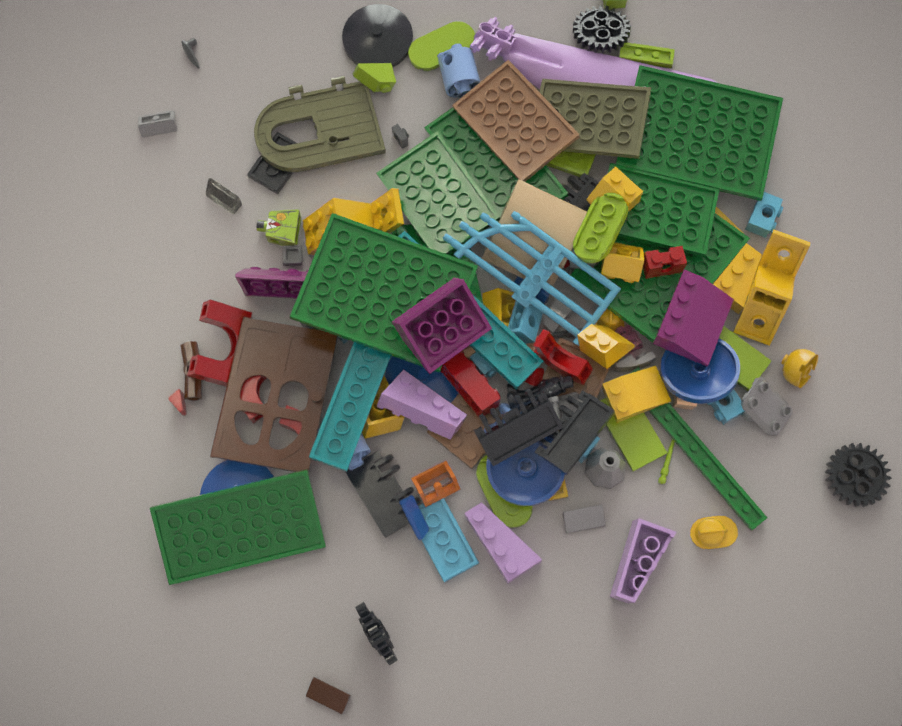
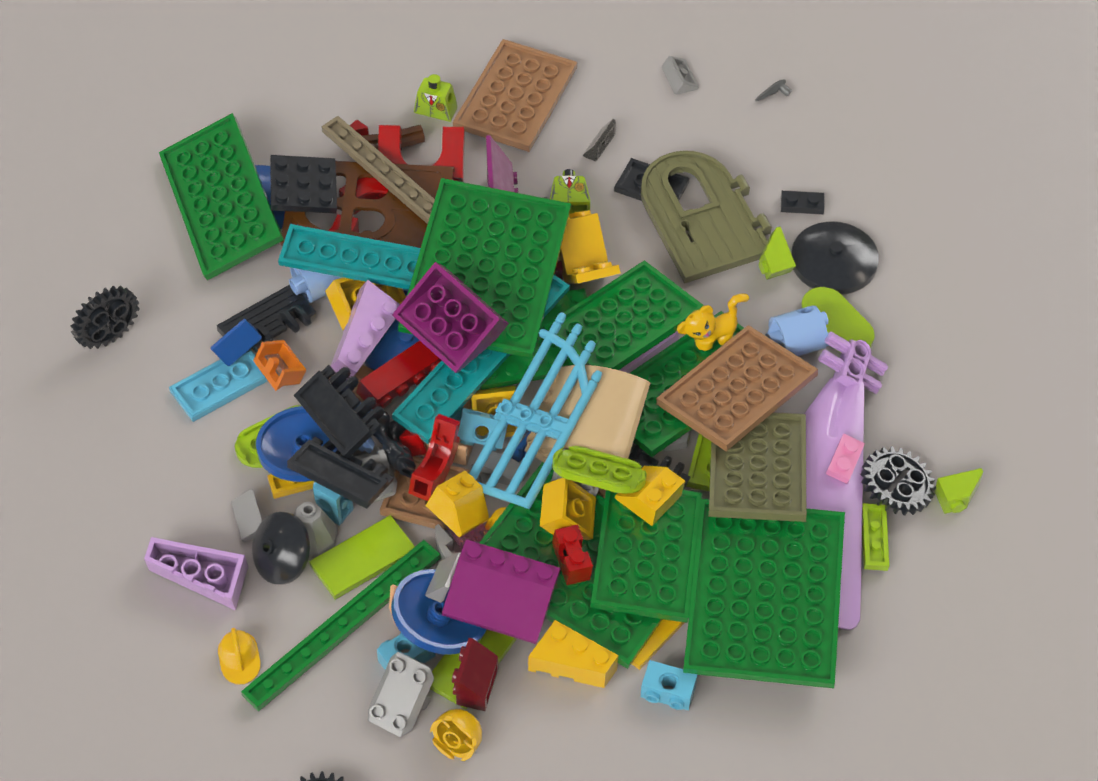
camera: 80 degrees right, 20 degrees down
(154, 328) = (436, 99): none -> lime torso
(156, 260) = (515, 95): none -> medium nougat plate
(244, 374) = (380, 167): none -> dark tan plate
(248, 447) = (303, 184): none -> black plate
(316, 50) = (802, 202): none -> black plate
(328, 695) = (46, 299): reddish brown slope -> none
(400, 135) = (705, 289): dark grey plate -> none
(455, 133) = (707, 328): none -> yellow animal
(501, 543) = (213, 432): lavender wedge -> none
(585, 58) = (845, 458): none -> bright pink plate
(629, 489) = (281, 548): none -> black dish
(635, 393) = (400, 543): yellow slope -> none
(664, 471) = (312, 597): lime piece -> none
(674, 360) = (442, 578): none -> light grey slope
(759, 348) = (475, 676): none -> dark red slope
(771, 287) = (560, 686): yellow bracket -> none

